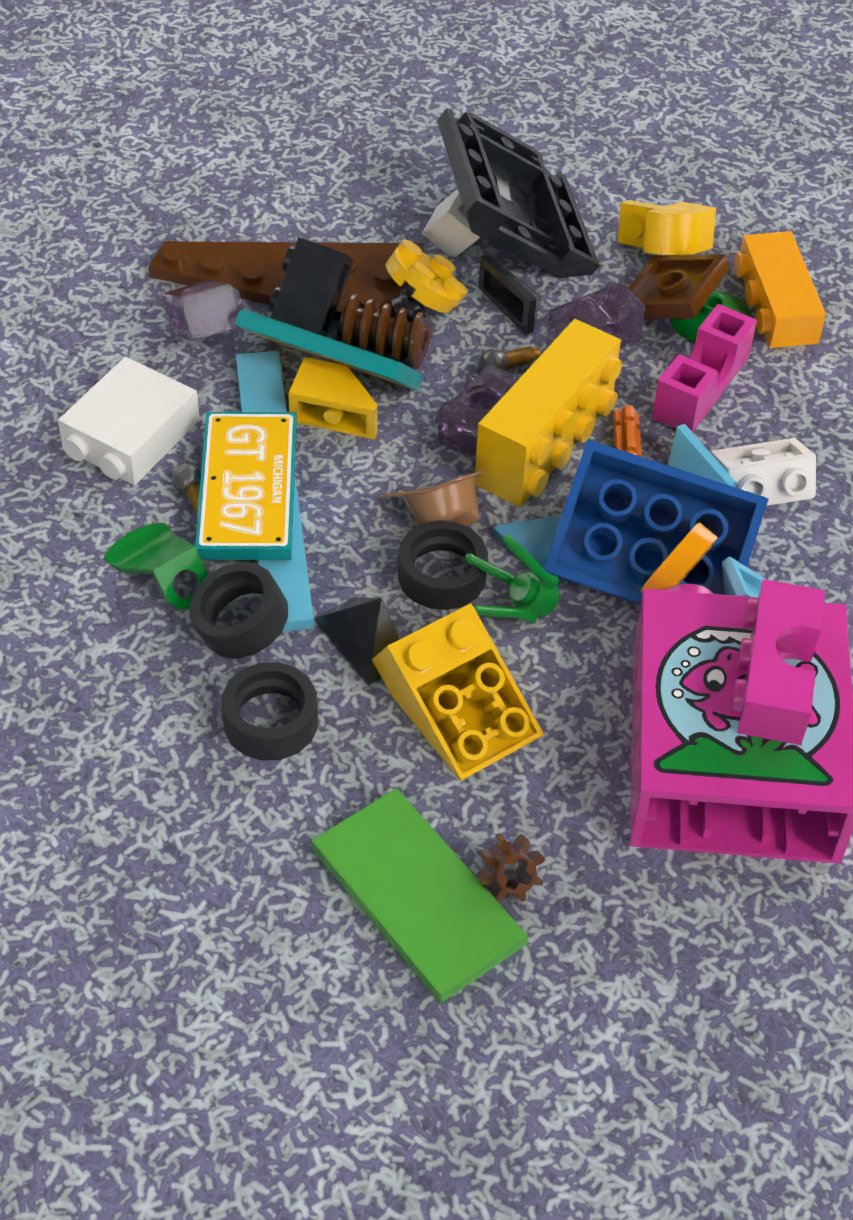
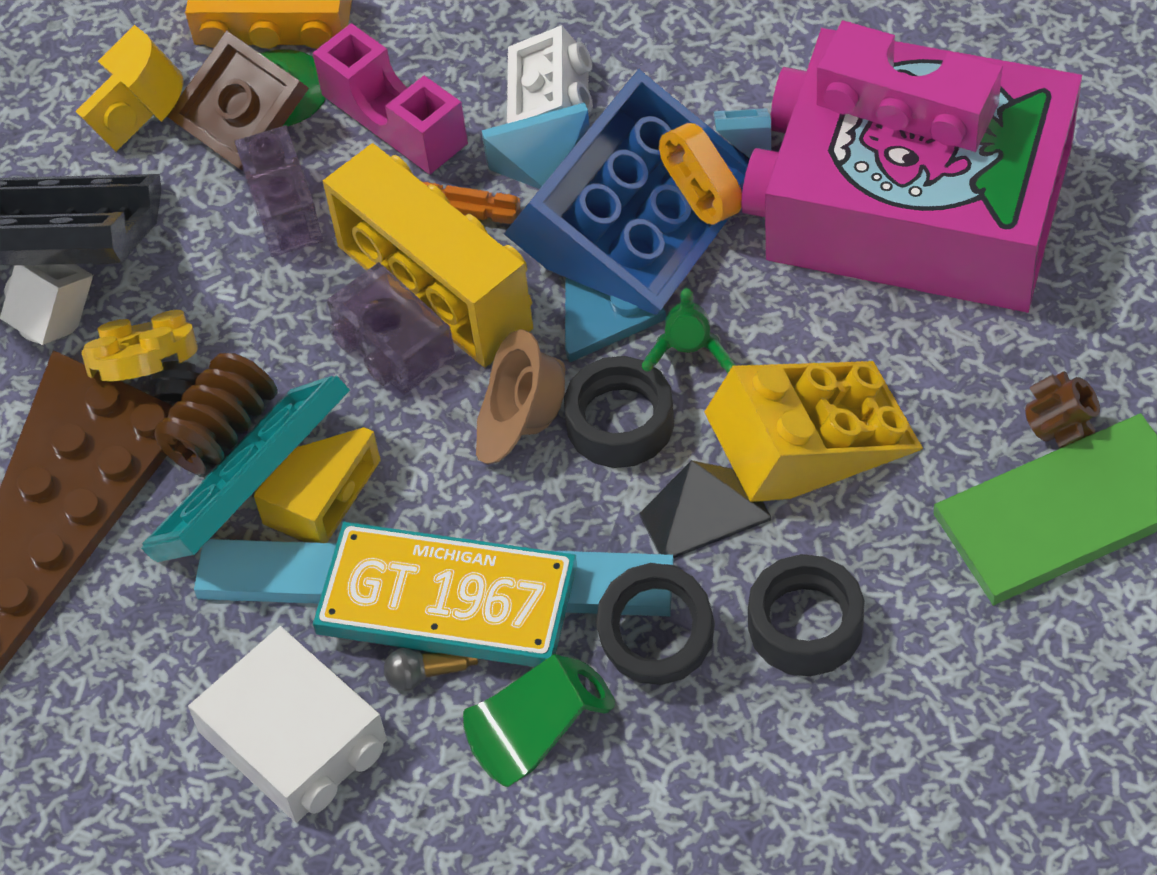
camera: 70 degrees left, 5 degrees up
(202, 309) = (124, 605): clear purple brick -> none
(310, 286) = (135, 469): black brick -> none
(508, 359) = (294, 309): piece -> none
(509, 294) = (188, 271): black slope -> none

